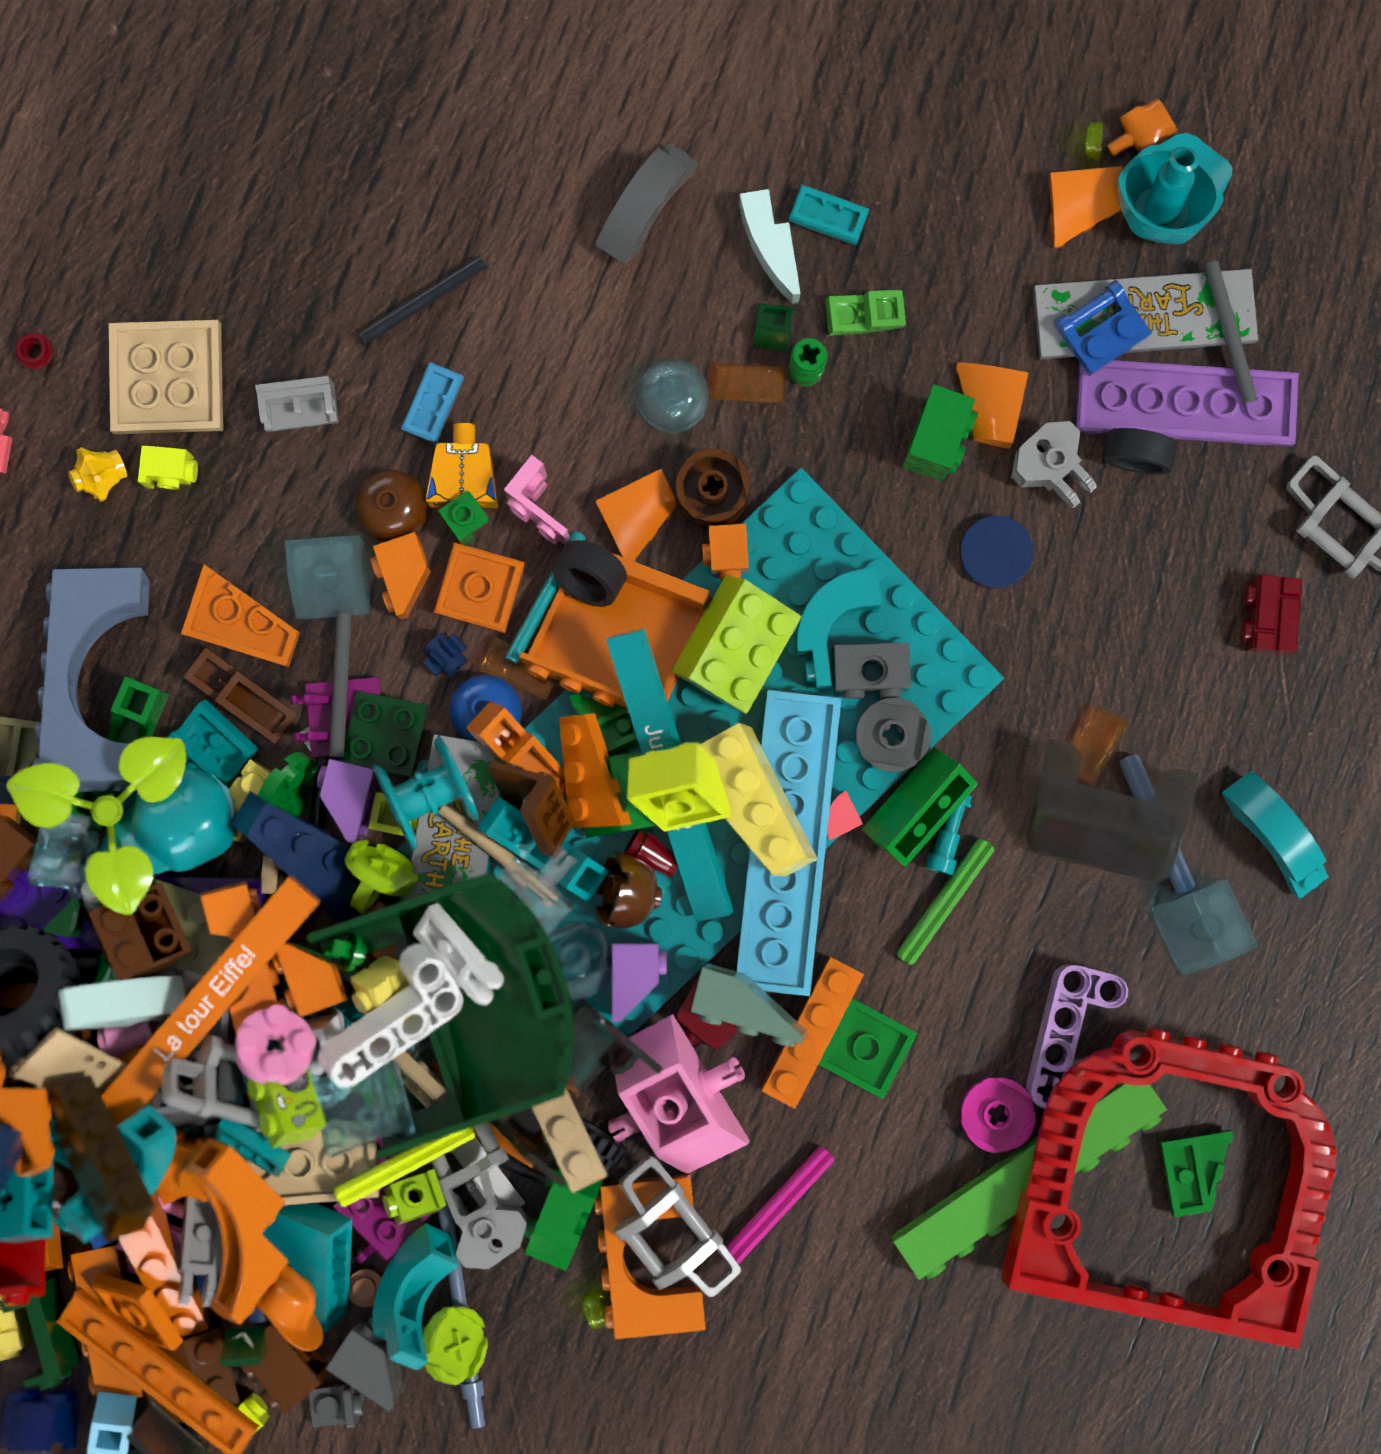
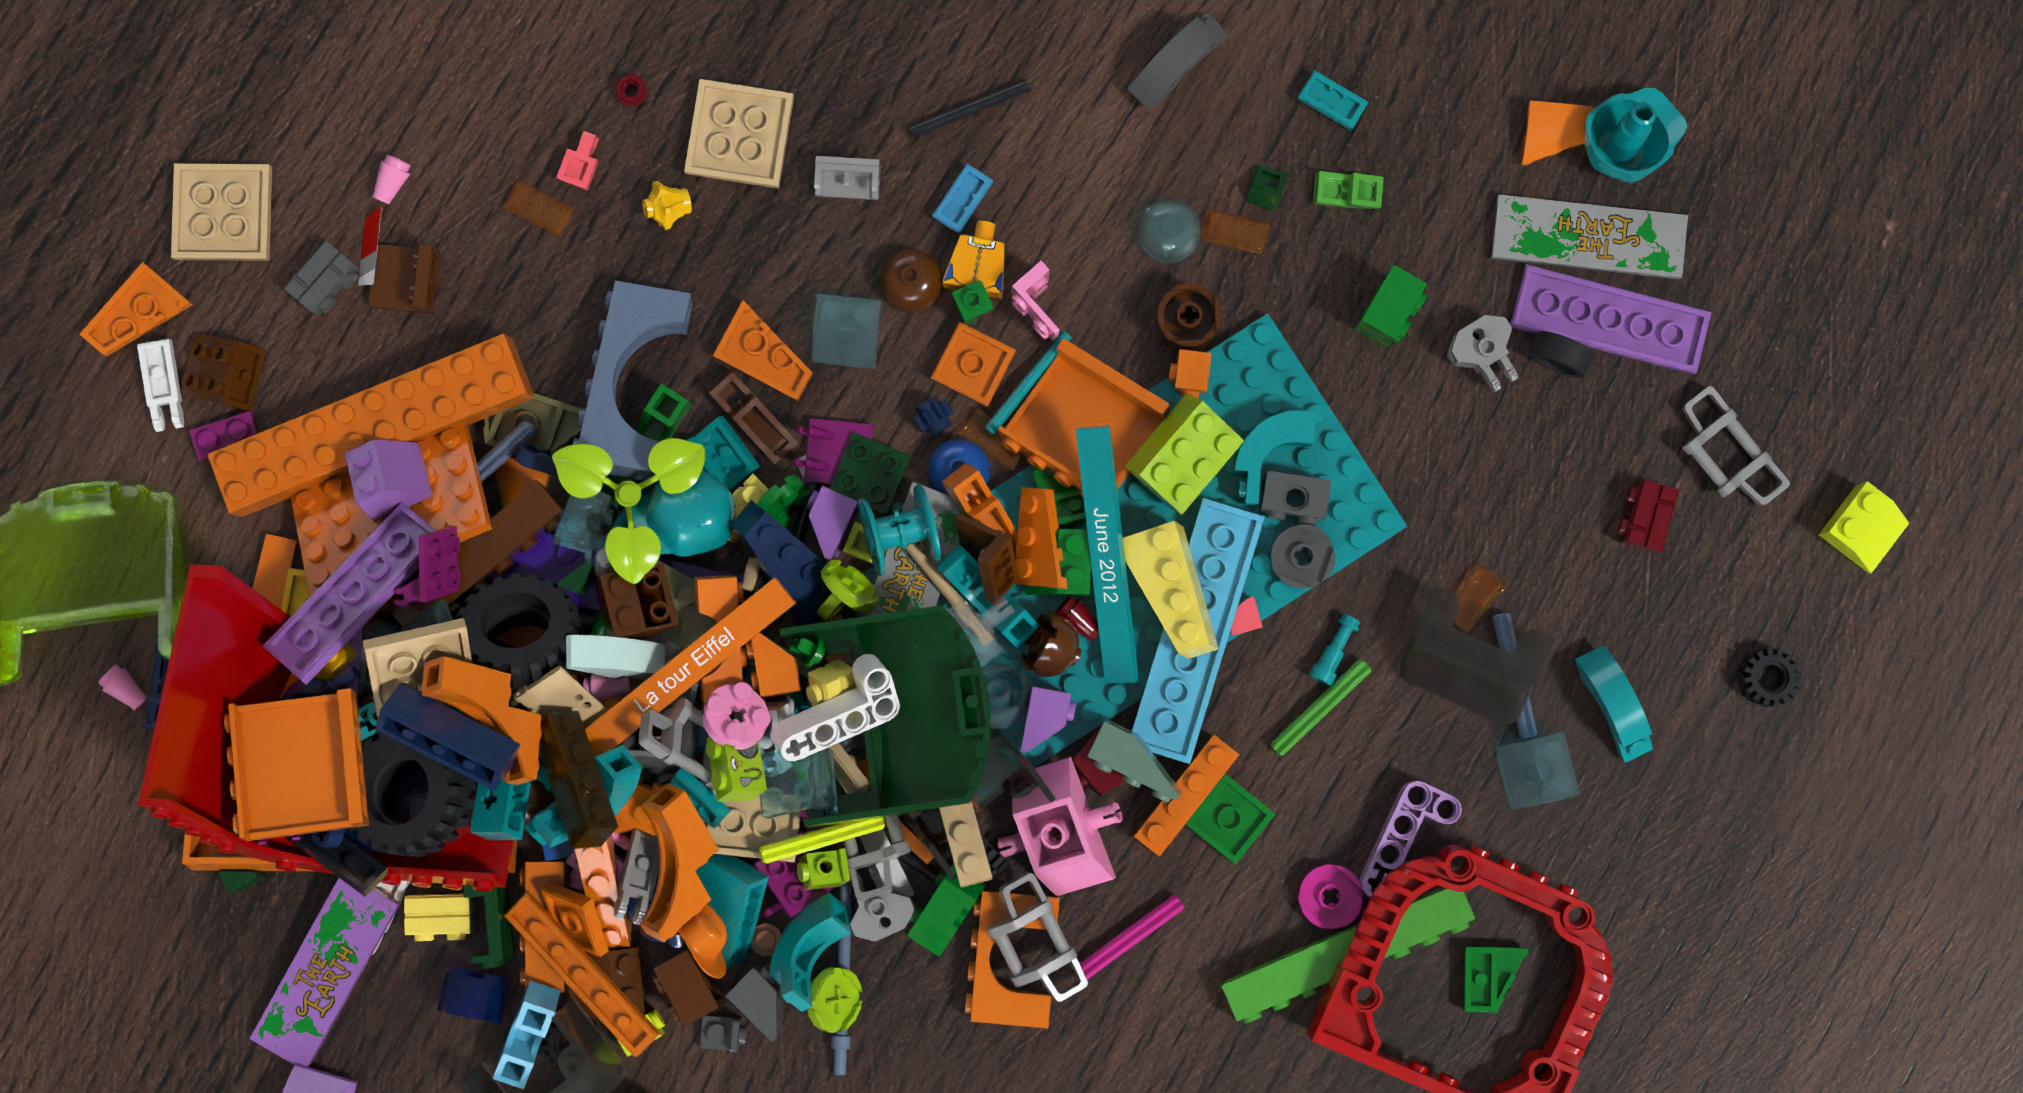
camera: 15 degrees right, 0 degrees up
(166, 467) = (726, 211): neon yellow brick -> none
(244, 1347) = (661, 963): dark green slope -> none
(340, 685) = (839, 425): dark grey bar -> none
(404, 572) = (912, 338): orange slope -> none
(458, 955) = (905, 672): white hinge -> none
(589, 573) = (1070, 370): black tyre -> none
(595, 1309) = (957, 995): clear neon green tile -> none
(637, 512) = (1120, 325): orange slope -> none
(678, 787) = (1112, 565): neon yellow slope -> none
(770, 242) = (1278, 115): light aqua slope -> none
(807, 362) = (1290, 224): green piece -> none
(919, 806) = (1314, 621): green brick -> none
(996, 552) = (1421, 417): dark blue tile -> none
(997, 400) = (1446, 287): orange slope -> none
(1093, 140) = (1573, 78): clear neon green tile -> none
(1109, 338) = (1553, 252): blue plate -> none
(1143, 127) = (1618, 76): orange piece -> none
(1230, 332) = (1659, 267): dark grey bar -> none

